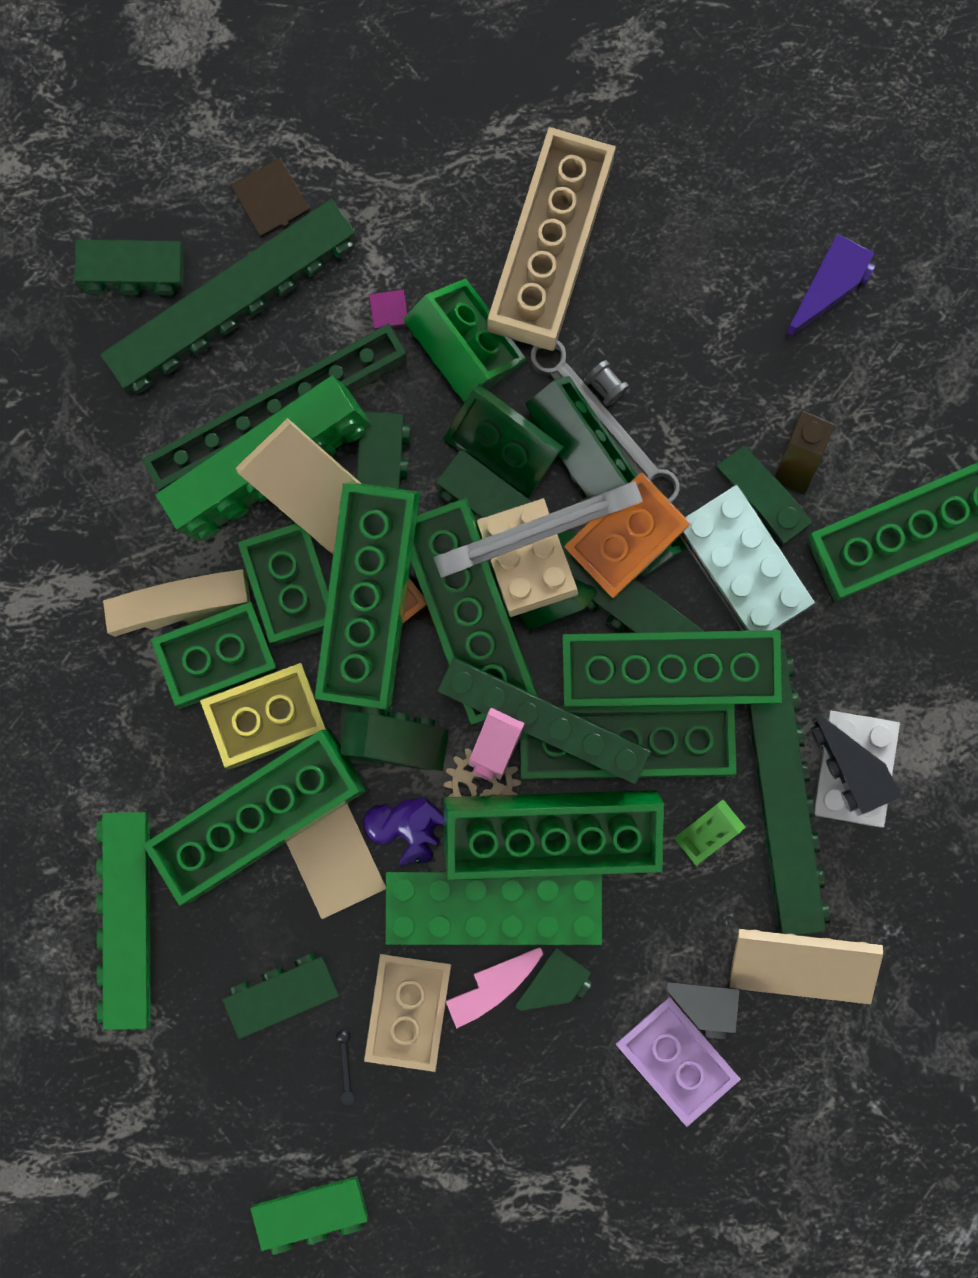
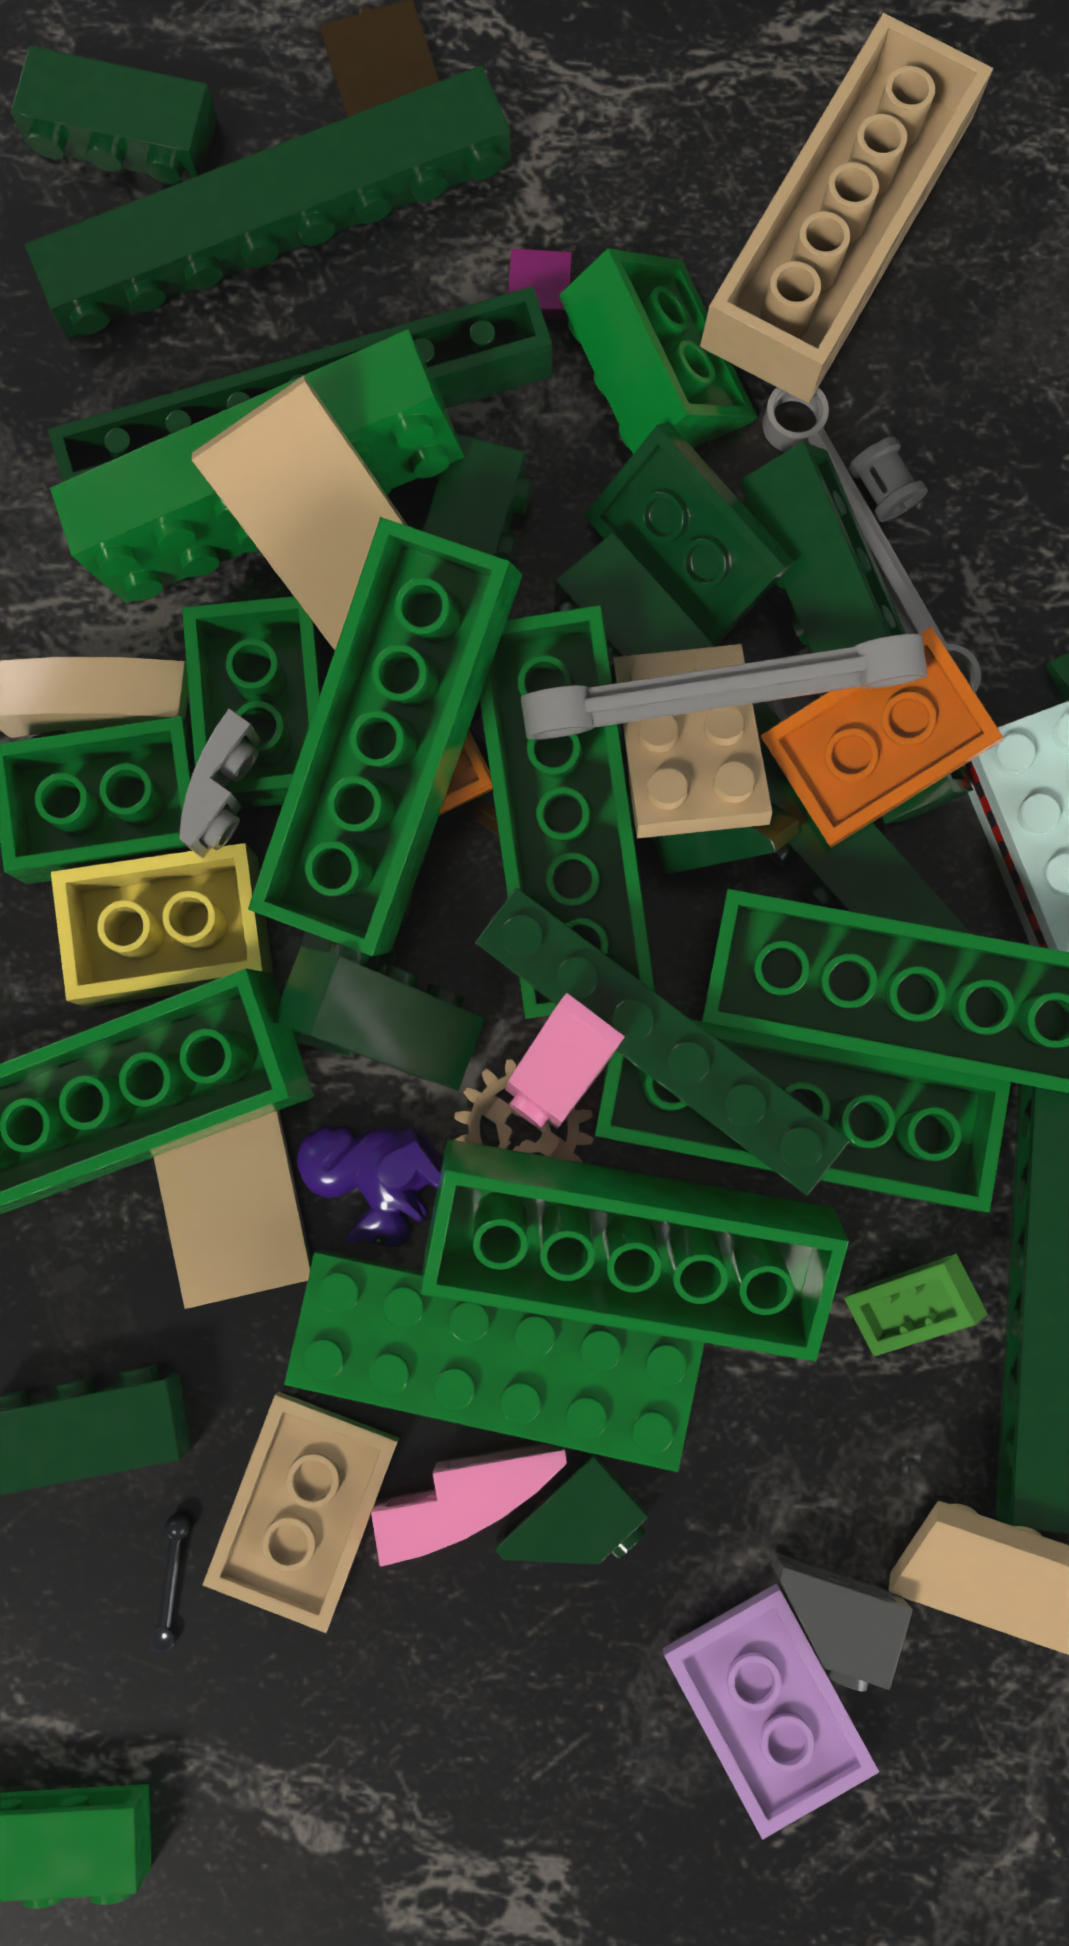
camera: 15 degrees right, 0 degrees up
(280, 647) = (209, 808): none -> light grey slope

